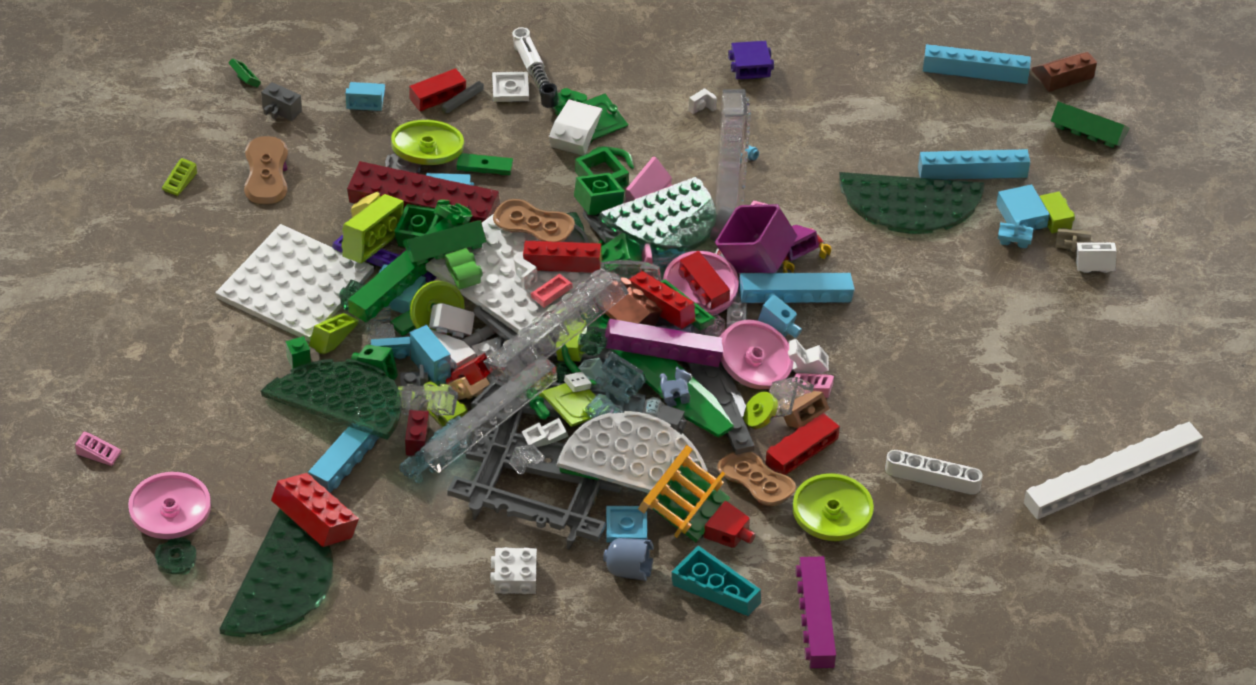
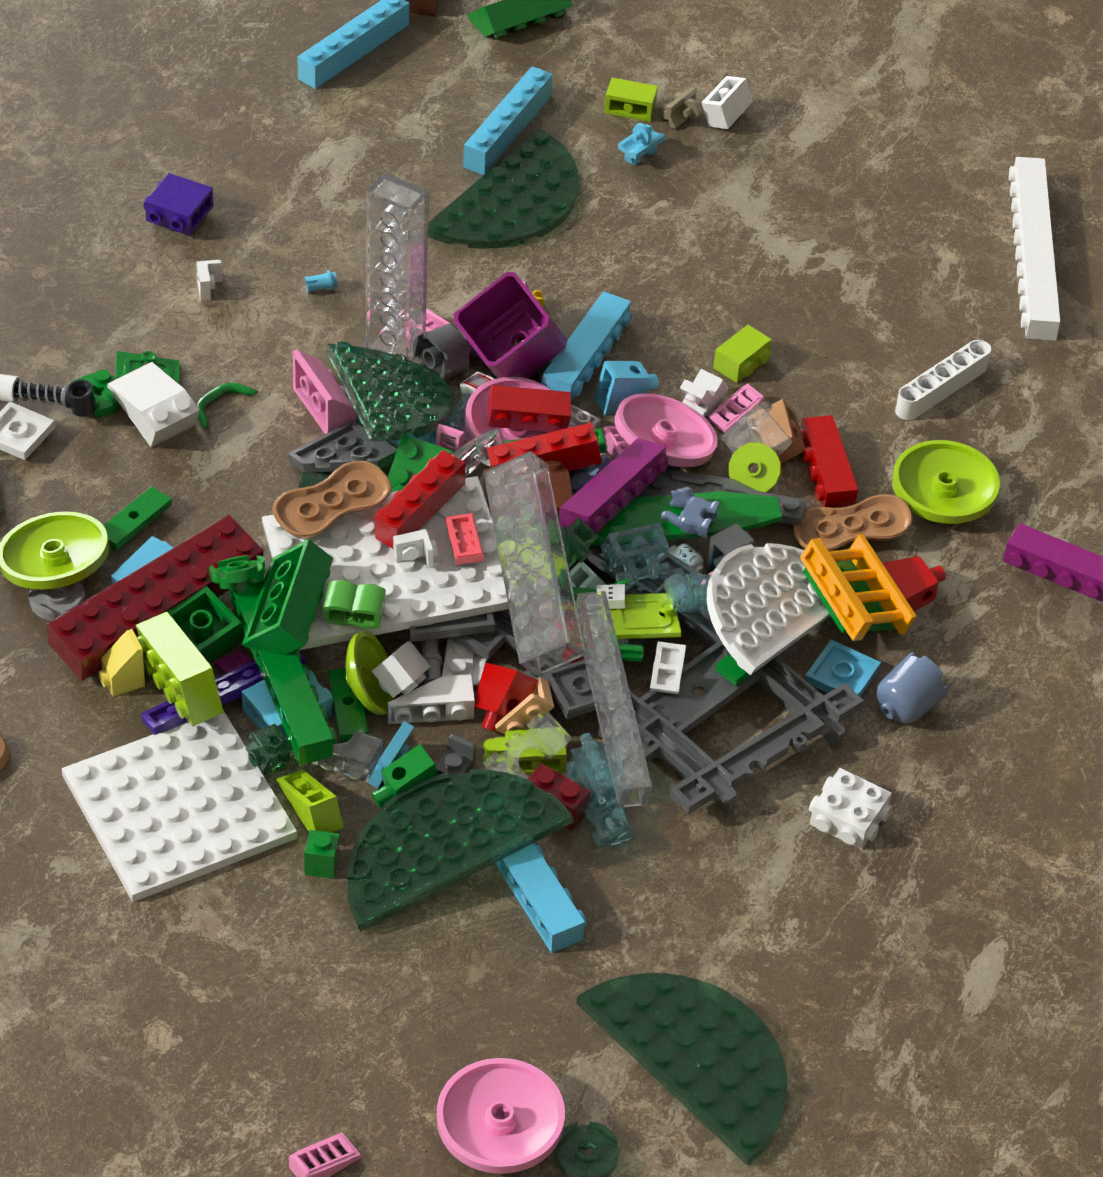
camera: 60 degrees left, 0 degrees up
(314, 509) = (623, 957): red brick -> none
(430, 353) = (443, 713): medium azure brick -> none
(525, 456) = (700, 705): clear bracket -> none
(597, 157) = (245, 434): green window -> none
(598, 193) = (300, 432): green brick -> none
(713, 580) = (993, 632): teal wedge -> none
(864, 364) = (742, 353): none -> lime brick
(1023, 205) = (605, 119): medium azure brick -> none

